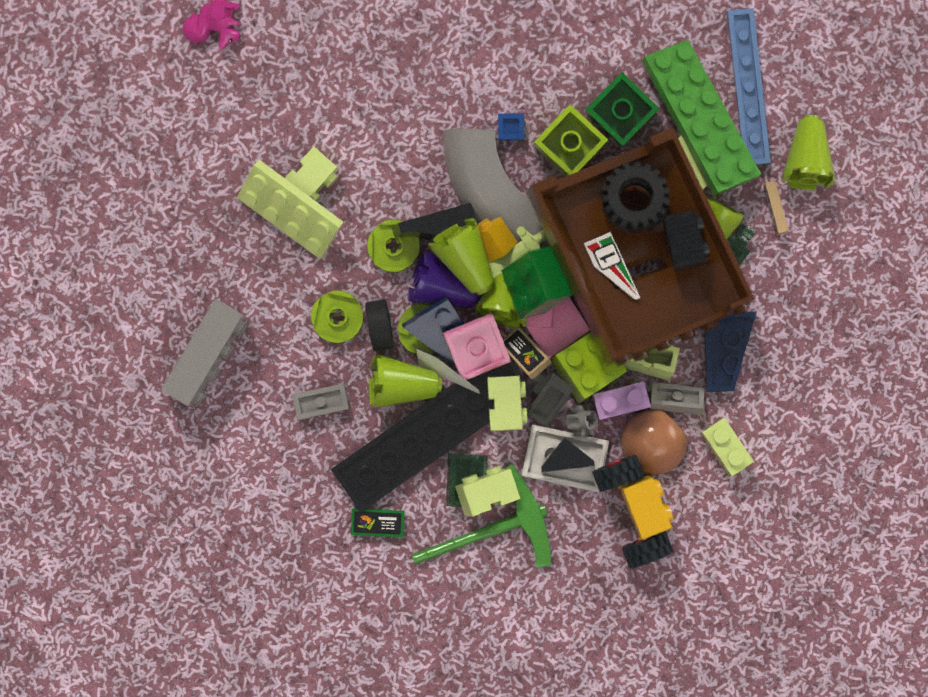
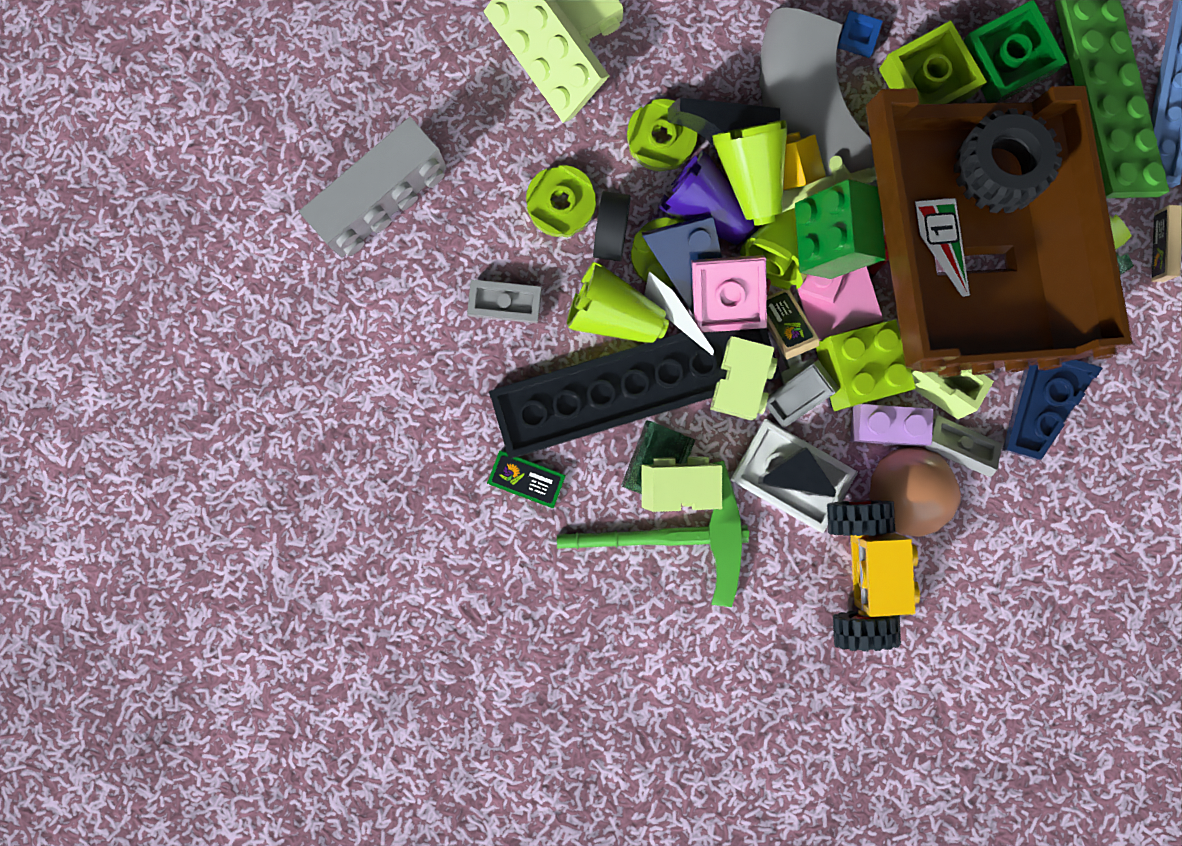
camera: 15 degrees right, 0 degrees up
(581, 419) = (832, 433): light grey gear -> none
(685, 240) = (1056, 238): black brick -> none
(727, 447) = (1010, 530): yellowish green brick -> none

